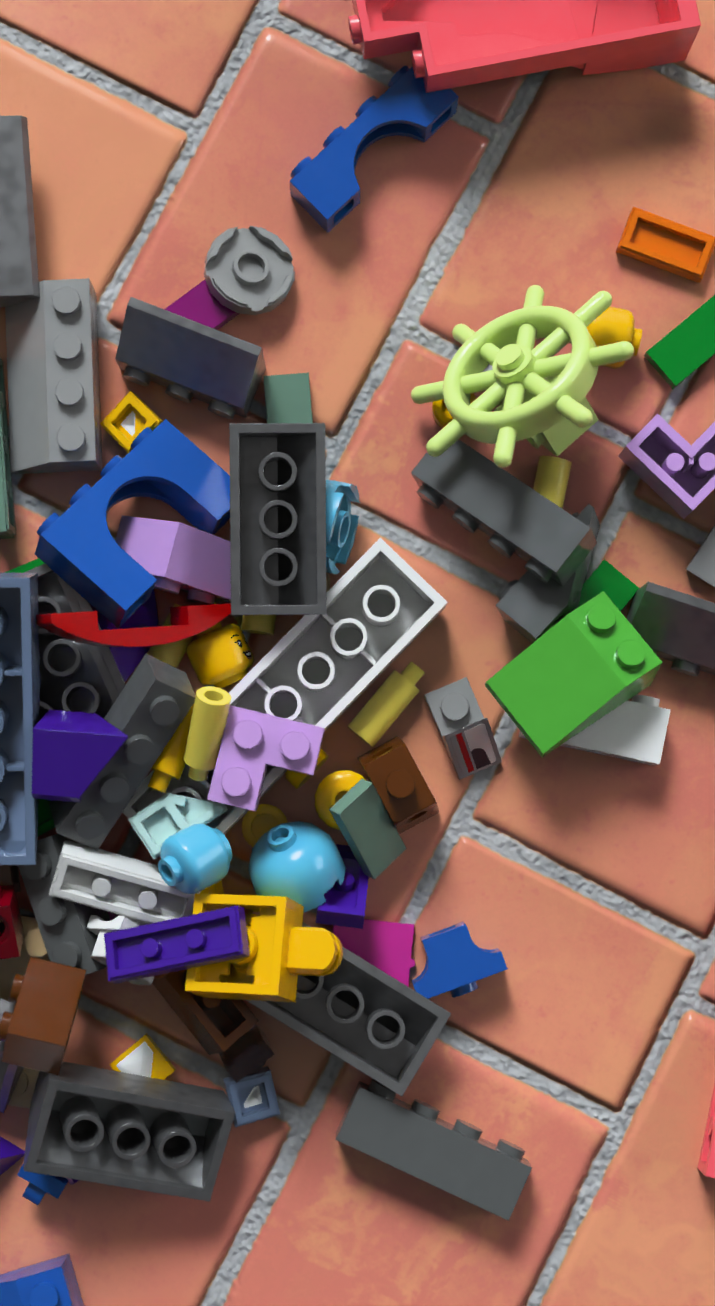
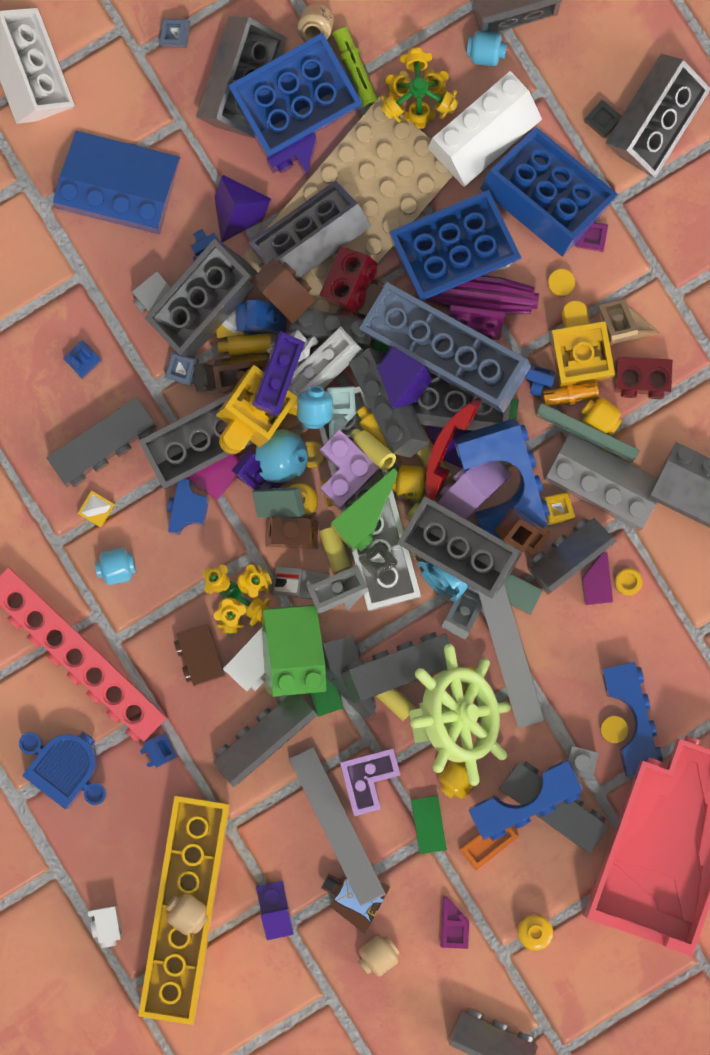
camera: 125 degrees right, 0 degrees up
(107, 1025) = (260, 318): none -> blue brick
(159, 1022) = (246, 344): none -> yellow cylinder
(165, 1215) = (150, 292): none -> light grey brick
(178, 265) = (628, 581): none -> yellow tile
(198, 445) = (521, 531): none -> reddish brown brick
(249, 270) = (602, 615): light grey tile -> none
(317, 684) = (360, 519): none -> bright green slope
(325, 1255) = (82, 359): none -> blue tile
(367, 628) = (378, 560): none -> clear smoke tile
(371, 465) = (462, 615): none -> light grey slope
(392, 357) = (512, 658): none -> light grey tile
(401, 163) = (614, 729): none -> yellow tile
(443, 662) = (338, 589): none -> light grey slope
(478, 177) = (583, 761): none -> light grey brick
(514, 802) = (229, 609): none -> yellow plant
(535, 1096) = (96, 509): none -> tile
(563, 179) = (568, 819): none -> dark grey brick
(603, 1015) = (115, 566): none -> medium azure head
(630, 241) = (495, 816): none -> blue arch
(657, 811) = (200, 655): none -> reddish brown brick

